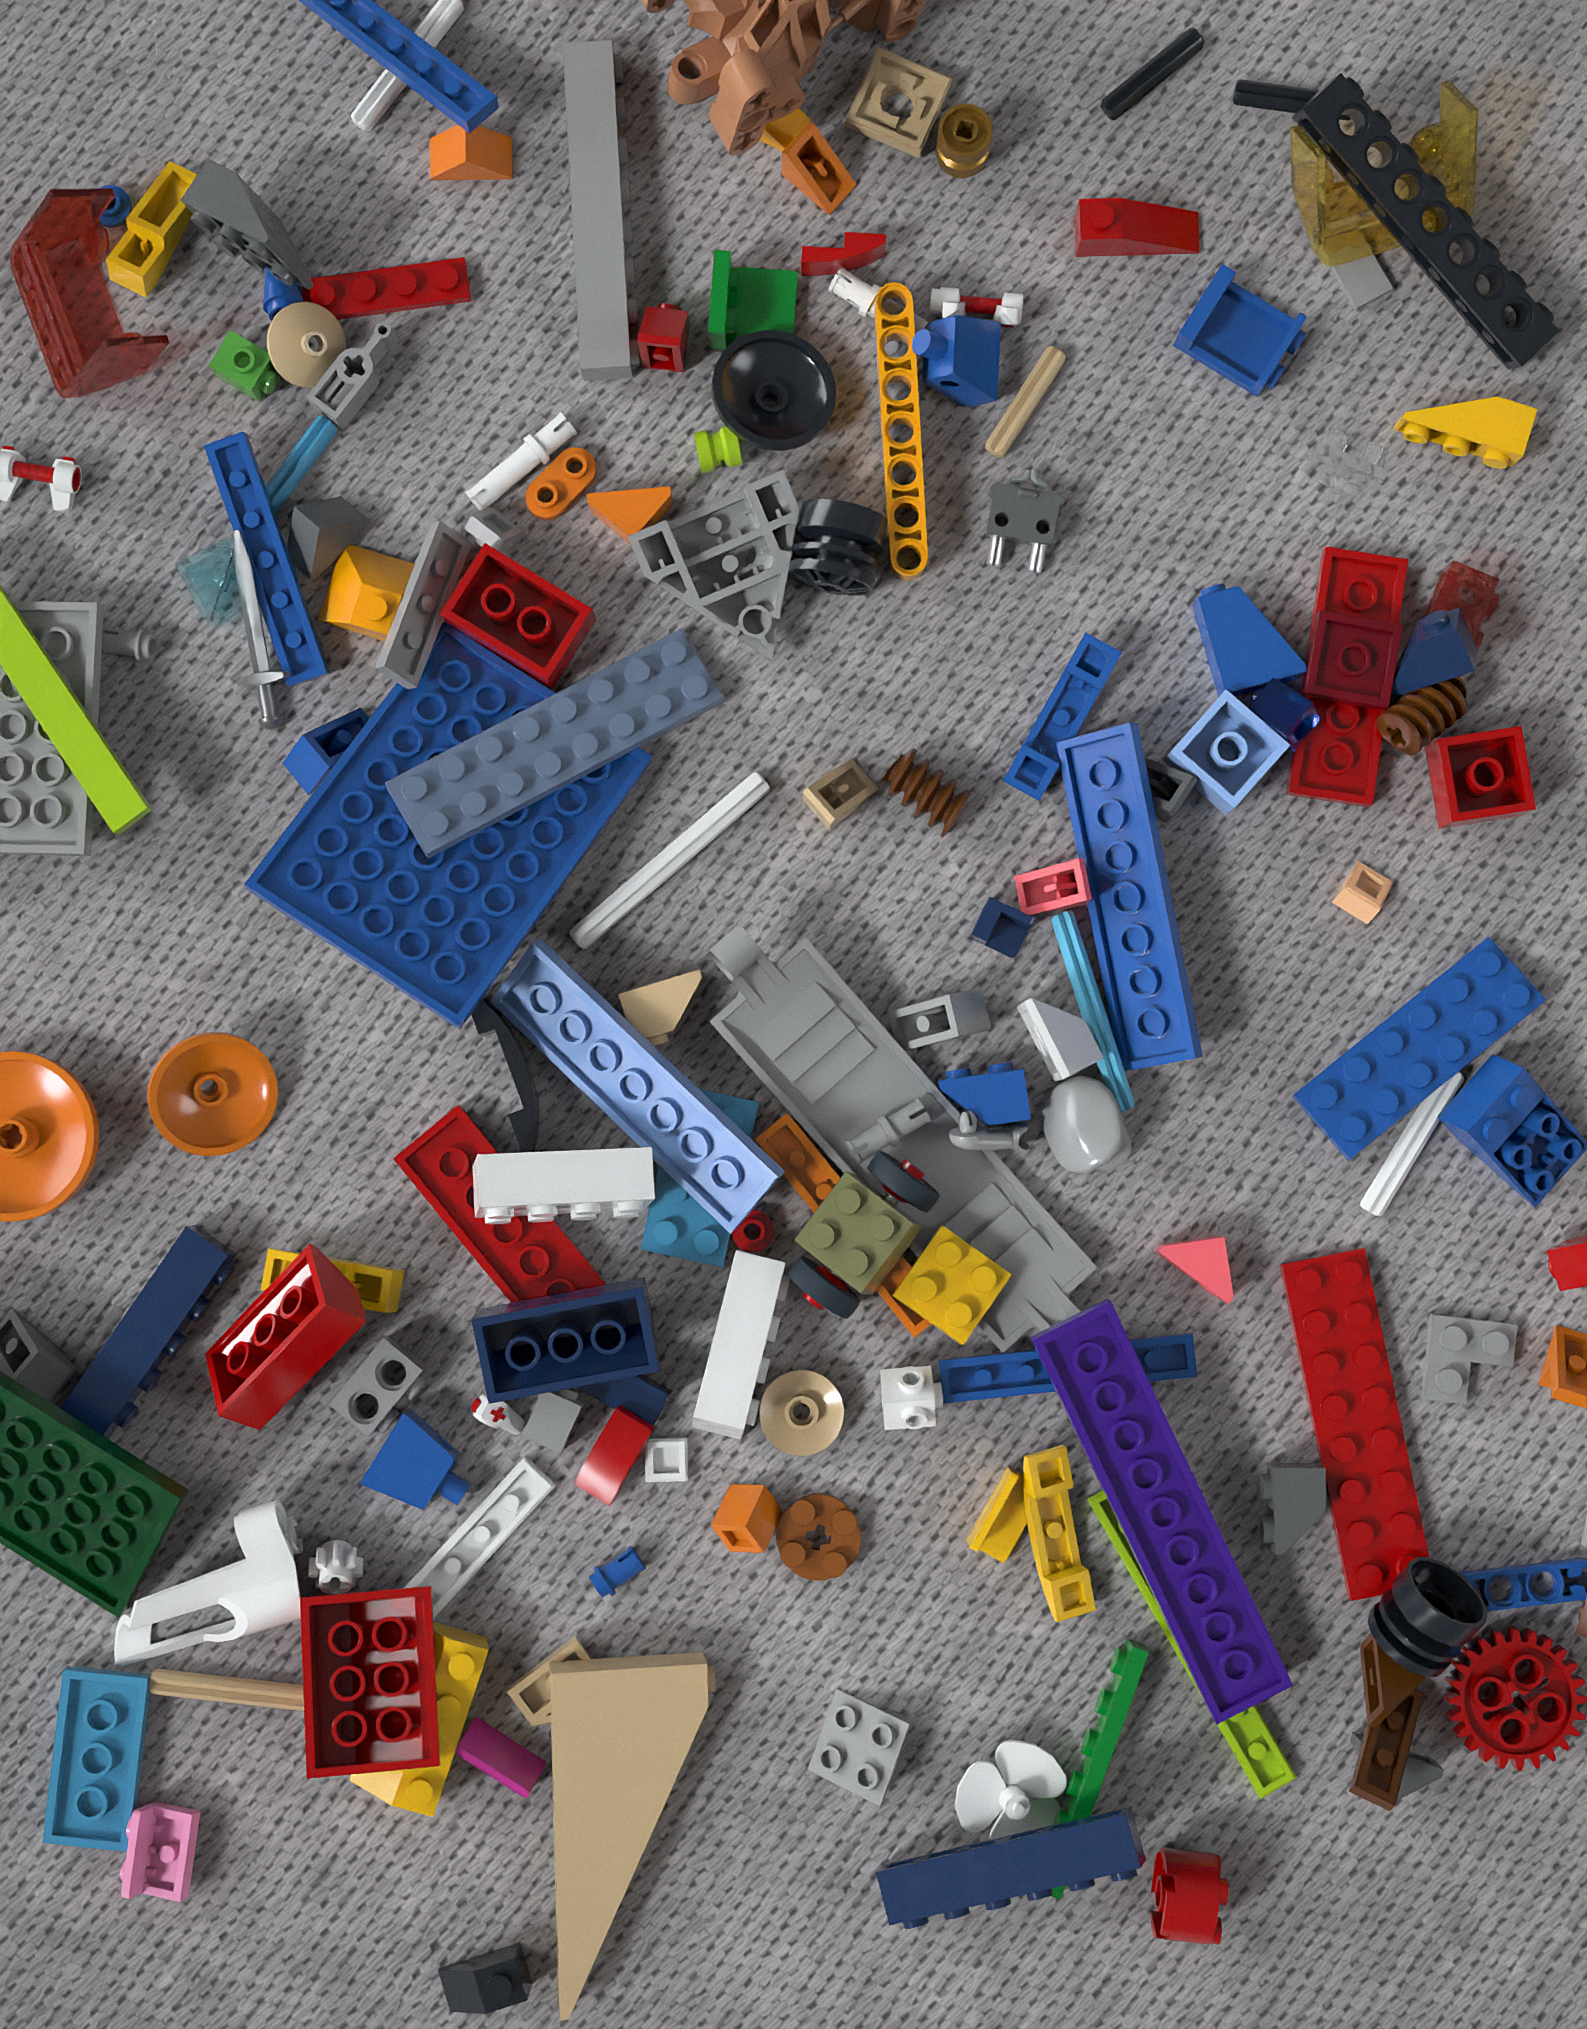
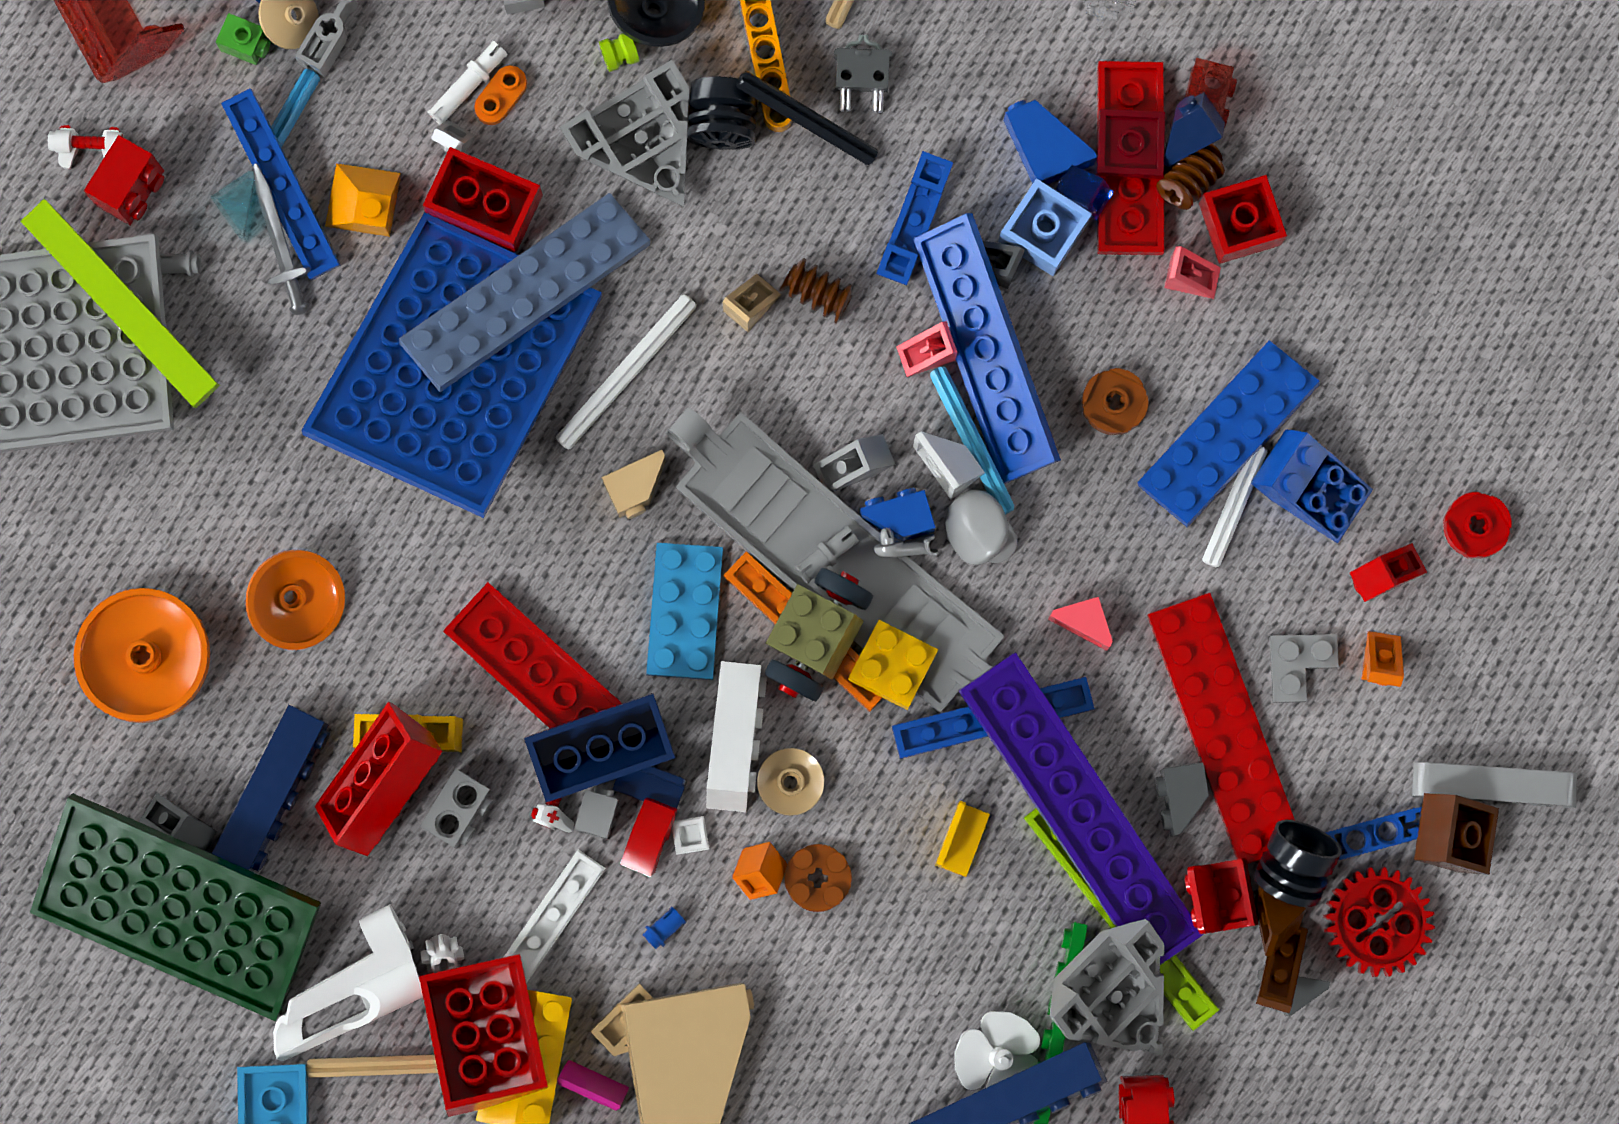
camera: 15 degrees left, 5 degrees down
(70, 528) = (125, 181): none -> red brick
(321, 749) = (343, 323): blue slope -> none
(322, 533) = (320, 158): dark grey slope -> none
(416, 1465) = (494, 866): blue torso -> none
(420, 607) = (406, 201): light grey plate -> none
(525, 1121) = (541, 585): black slope -> none
(563, 1184) = (579, 627): white brick -> none
(630, 509) = (557, 107): orange slope -> none
(636, 1086) = (625, 545): medium blue plate -> none
(762, 1241) = (732, 636): red plate -> none
(859, 1747) = (873, 1036): light grey hinge -> none
(909, 1397) = (873, 757): white brick -> none
(943, 568) = (806, 117): none -> black axle
(1001, 927) = (892, 386): dark blue panel -> none
(1053, 1533) = (1000, 845): yellow slope -> none
(1168, 1743) = (1114, 990): none -> light grey wedge
(1304, 983) = (1108, 384): none -> dark orange plate
(1323, 1639) = (1221, 896): none -> red bracket
(1363, 892) = (1168, 320): light nougat slope -> none
(1402, 837) = (1192, 274): none -> coral slope

